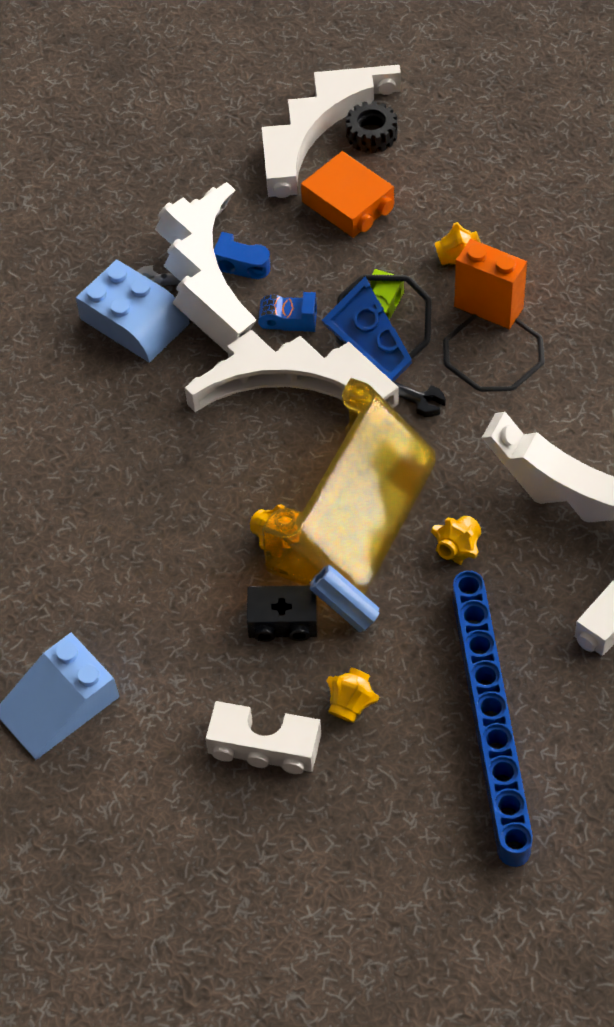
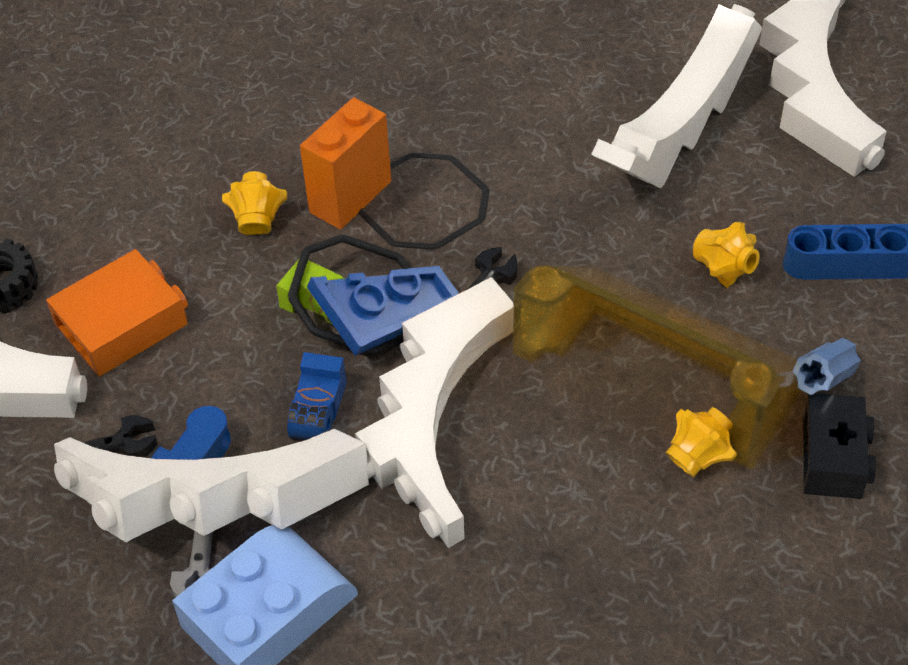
camera: 85 degrees left, 5 degrees down
(248, 221) = (123, 441): none -> black bar

